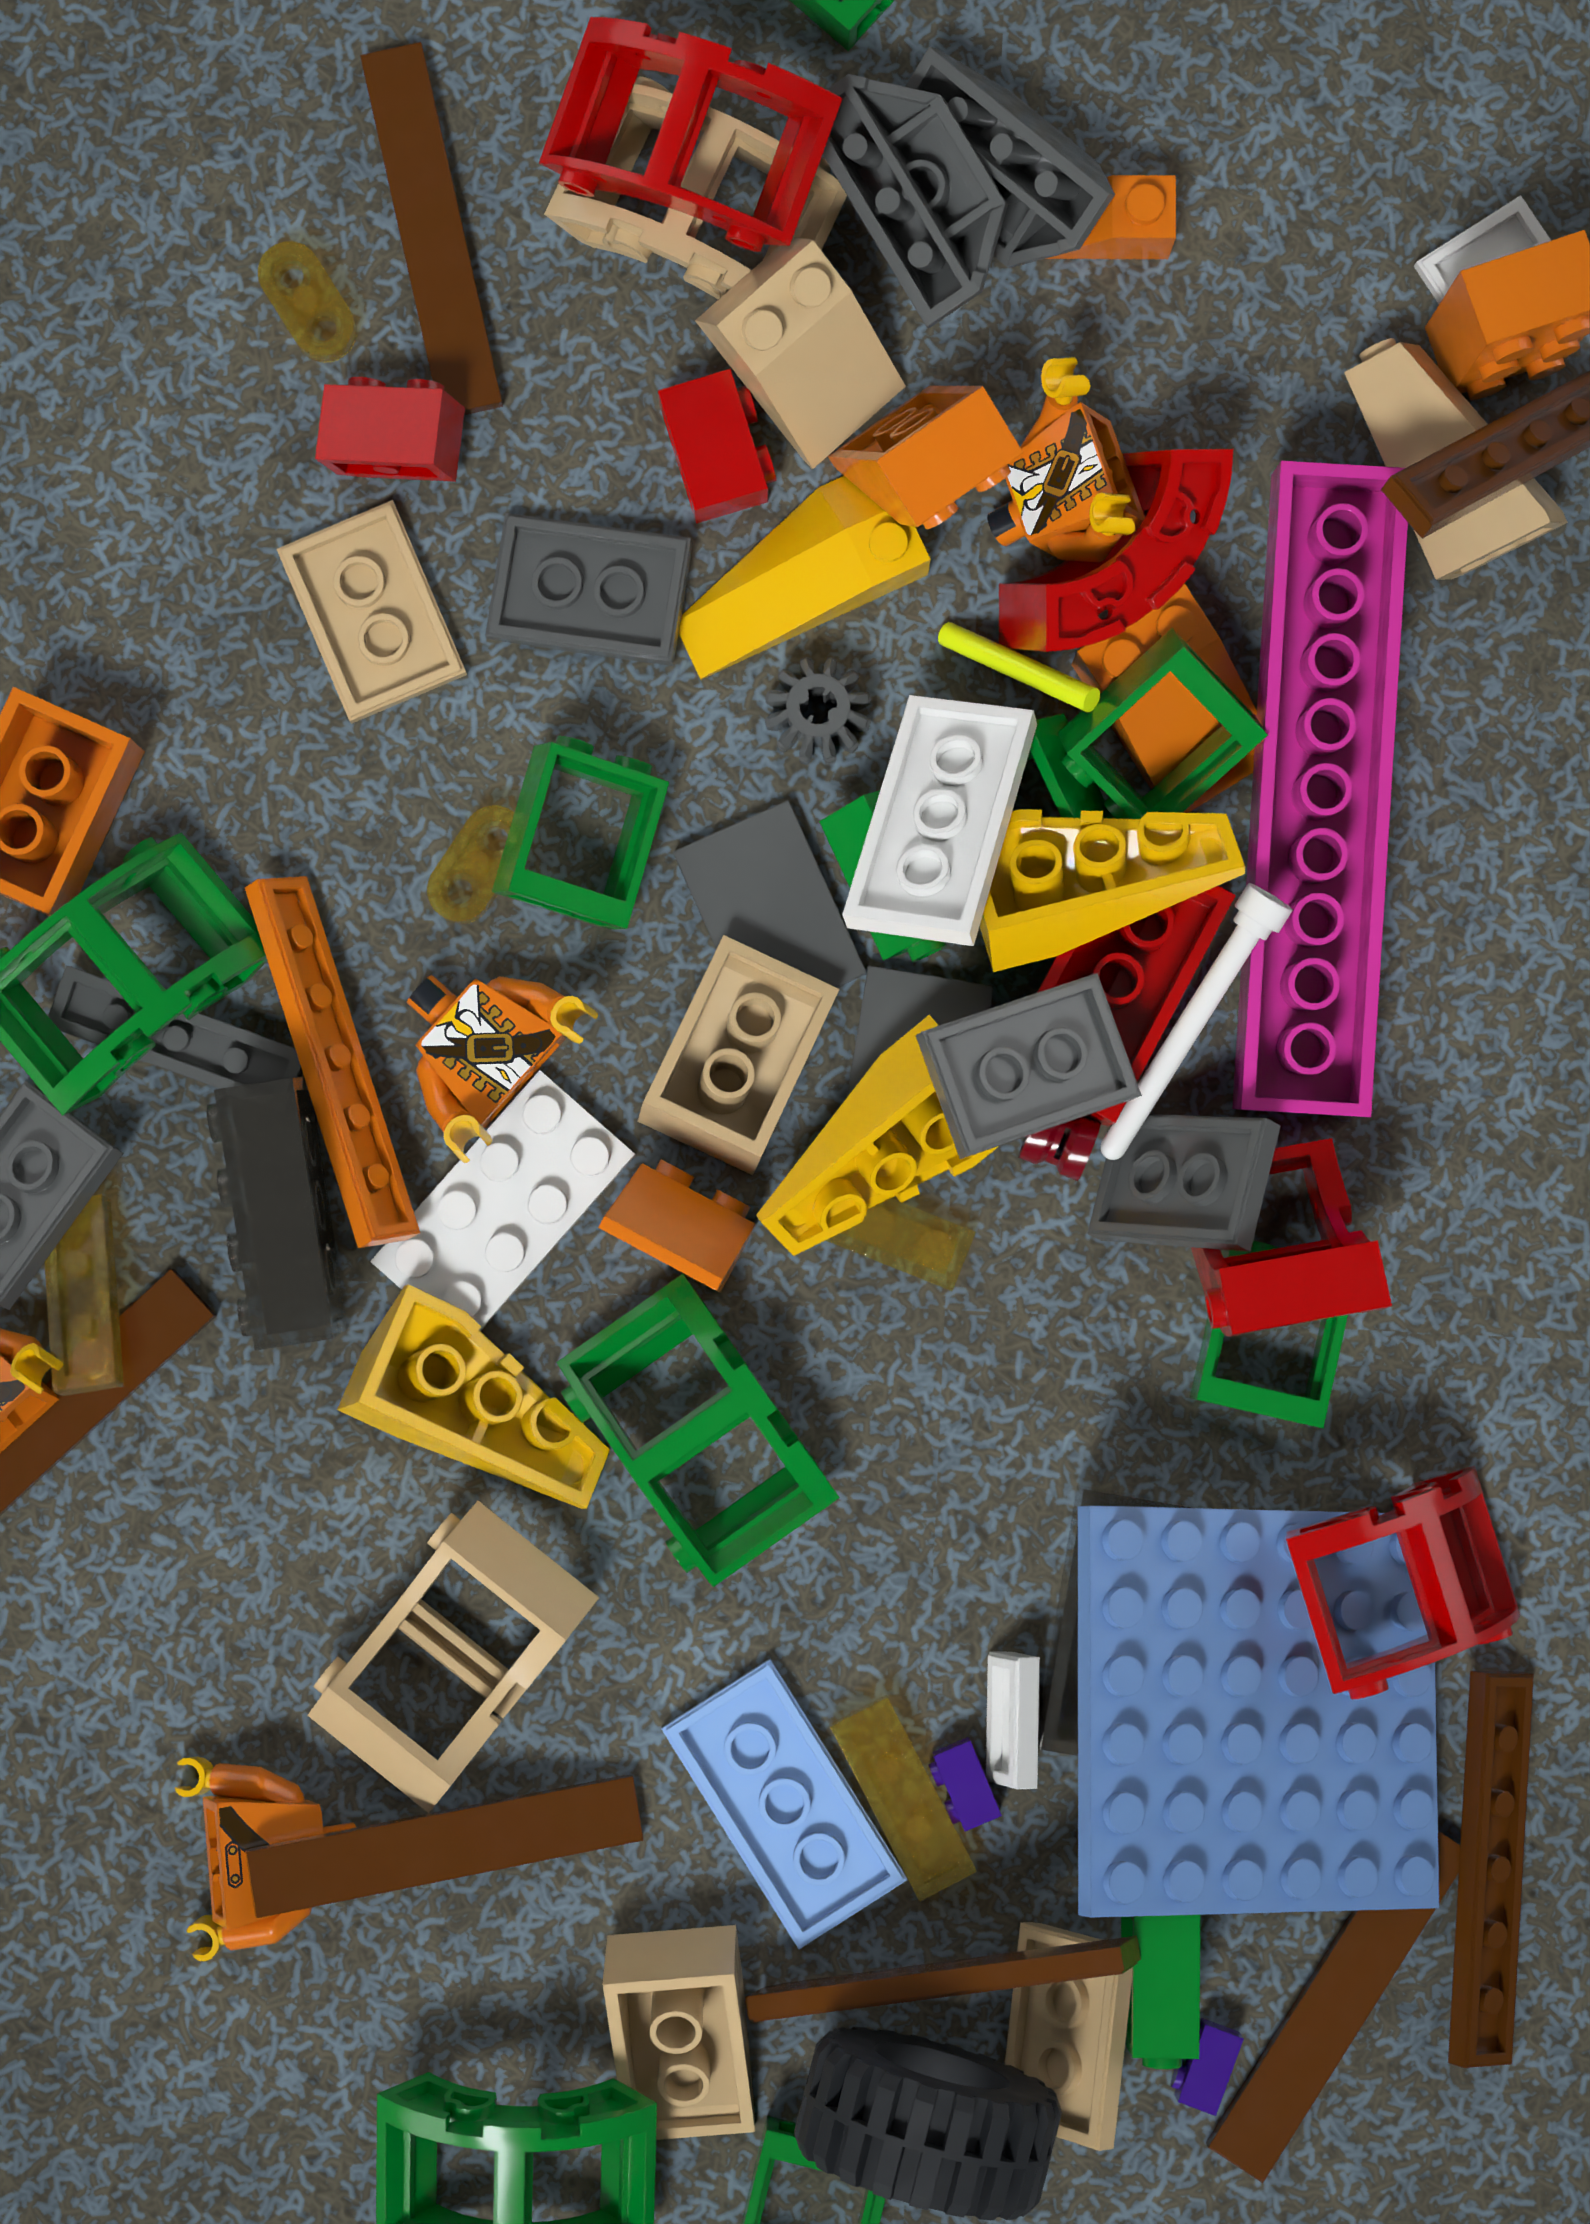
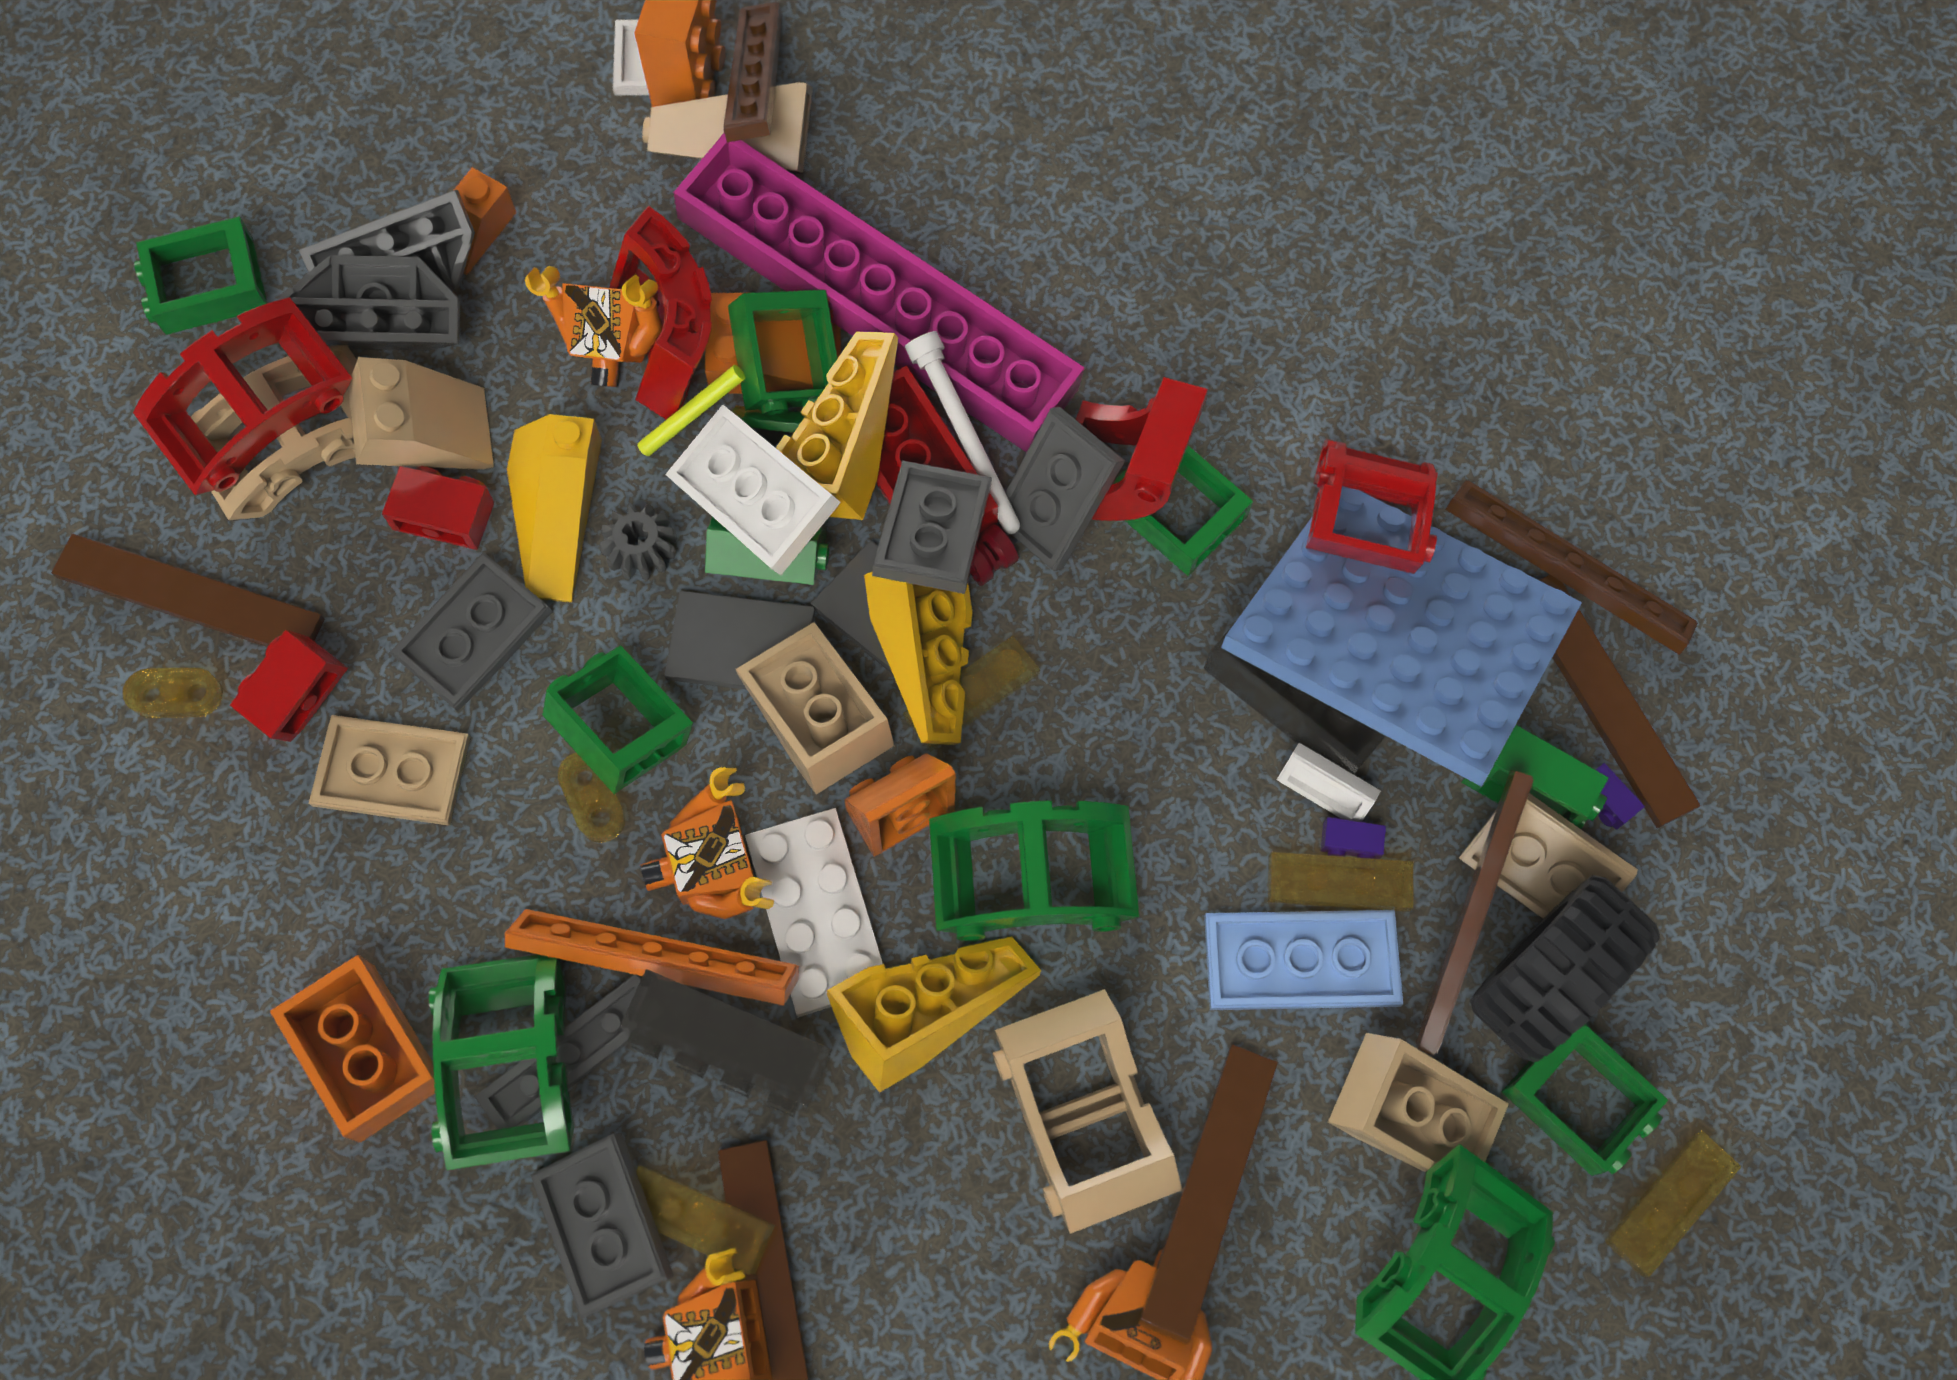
camera: 60 degrees left, 15 degrees down
(930, 454) = (531, 377): orange slope -> none

